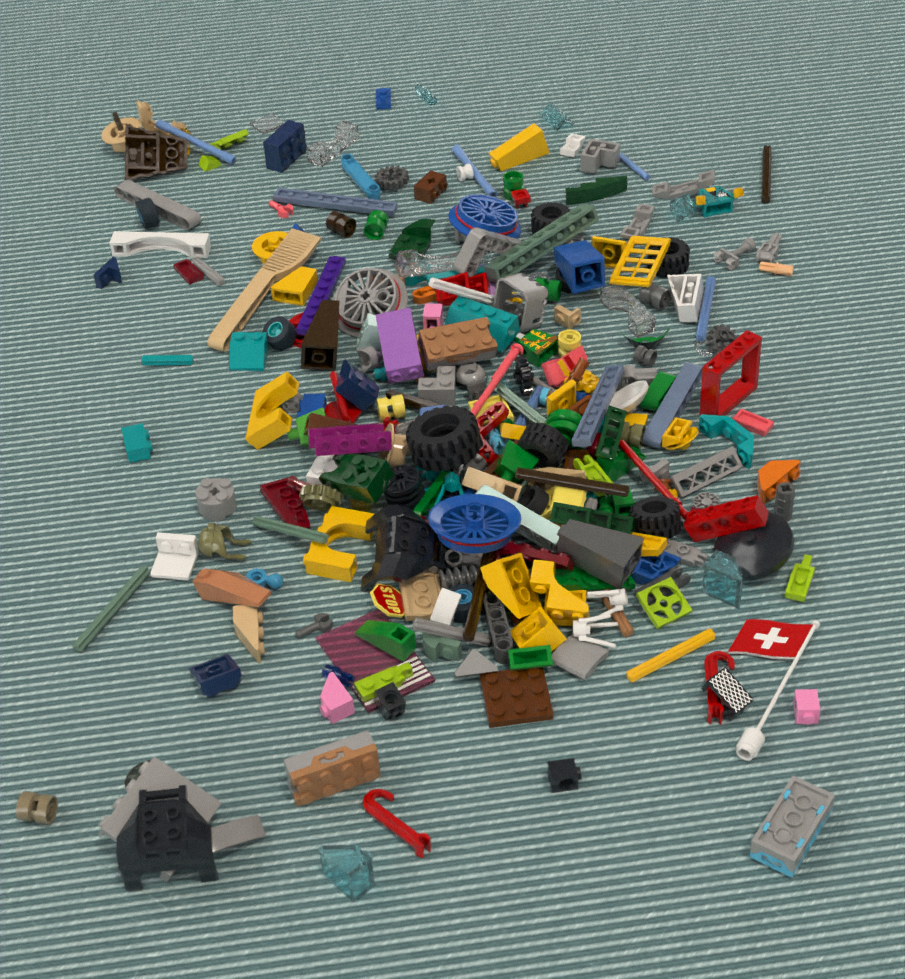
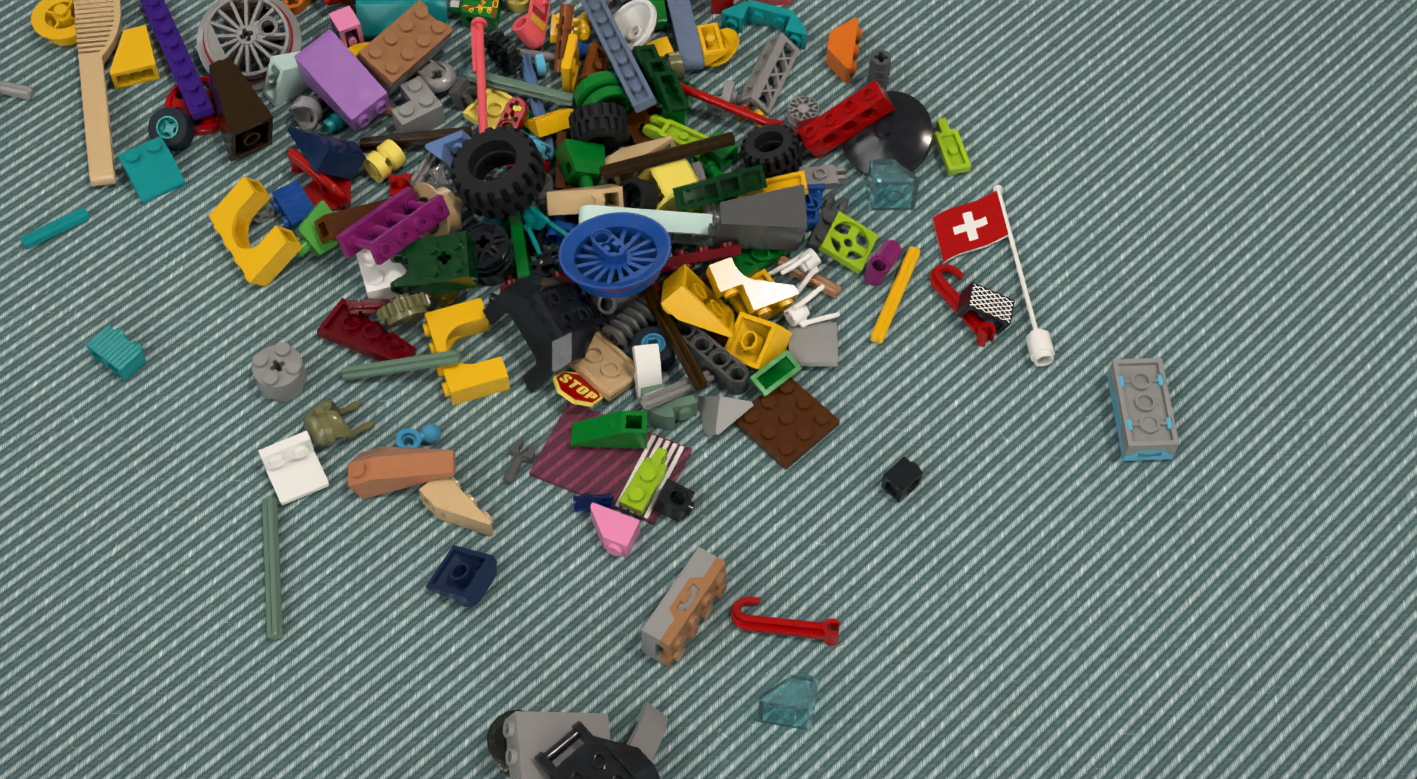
camera: 40 degrees left, 15 degrees up
(675, 628) = (882, 262): none -> magenta piece
(806, 706) = (1059, 280): bright pink brick -> none

